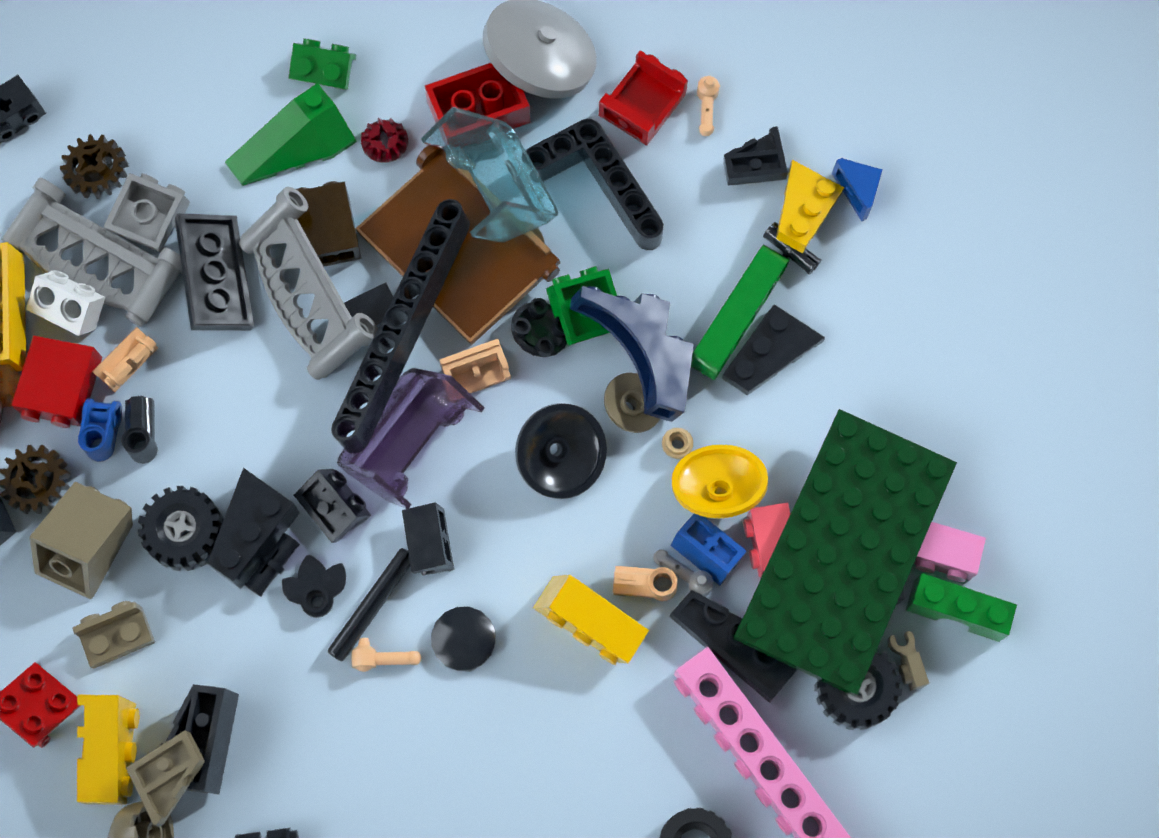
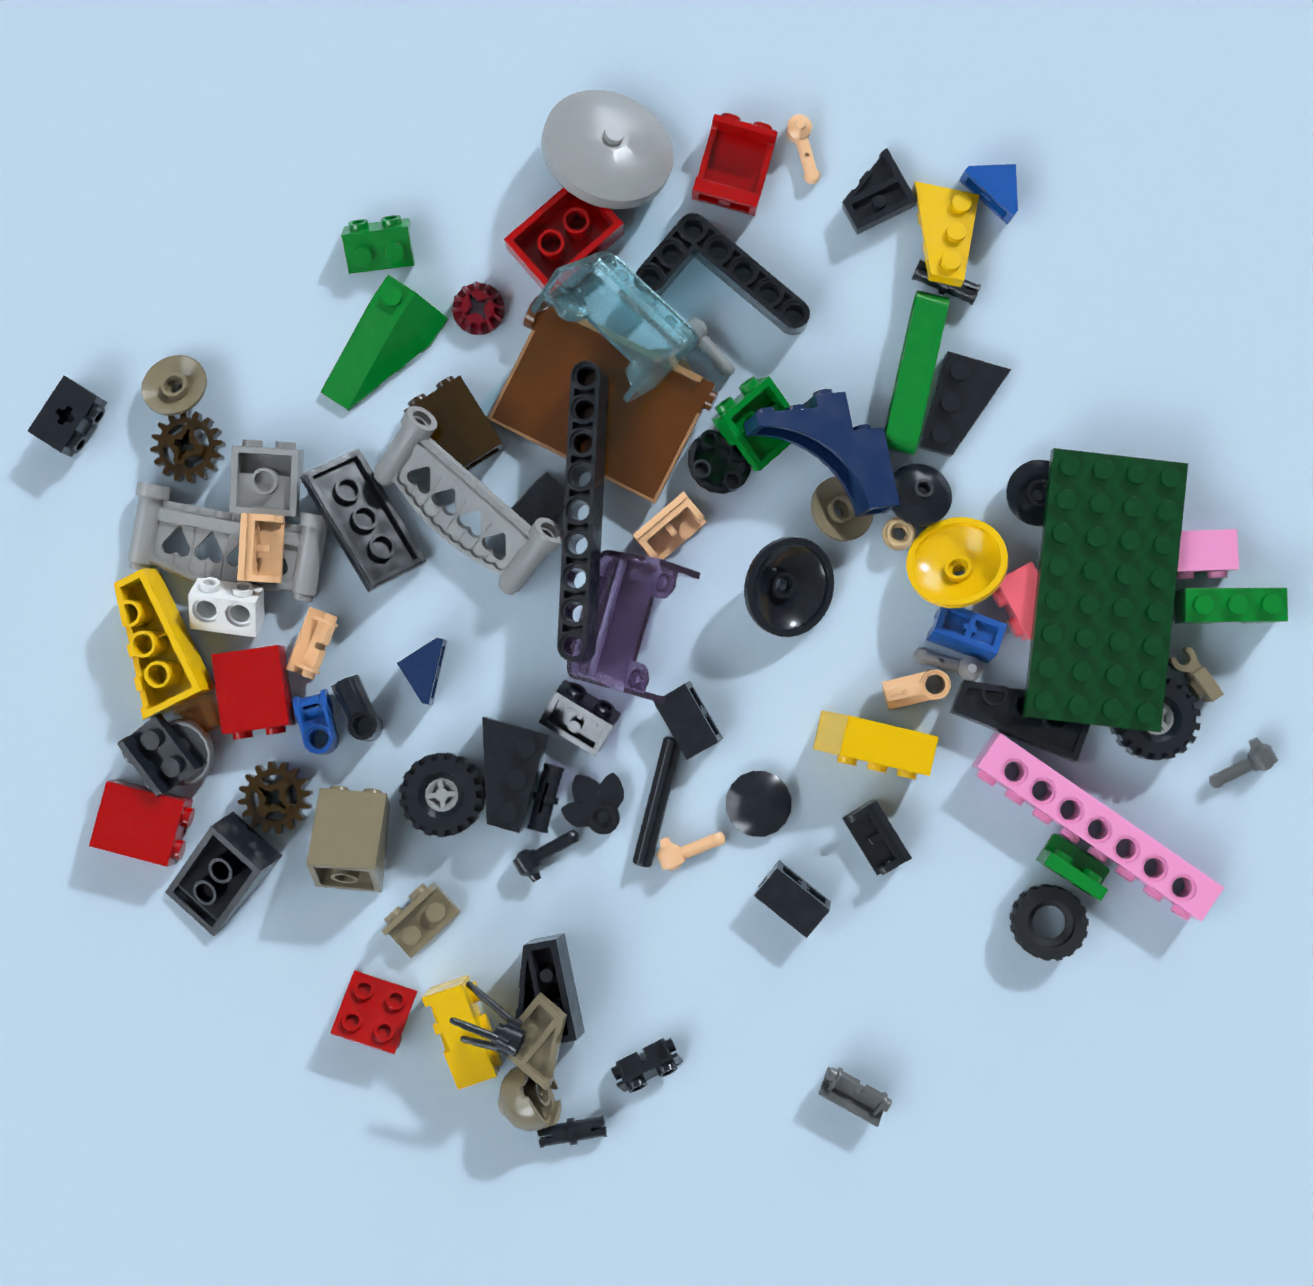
camera: 15 degrees left, 15 degrees up
(105, 114) = (170, 375): none -> dark tan dish
(115, 262) = (261, 548): none -> light nougat hinge
(138, 759) = (505, 1039): none -> black plant
(212, 413) = (423, 669): none -> dark blue slope
(234, 616) = (529, 861): none -> black piece
(461, 736) = (793, 899): none -> black hinge
(560, 707) = (876, 837): none -> black hinge
(562, 222) = (710, 348): none -> light grey piece
(705, 425) = (915, 506): none -> black dish
(737, 800) = (1074, 866): none -> green bracket
(802, 437) = (1019, 491): none -> black dish
(947, 760) = (1259, 758): none -> dark grey piece

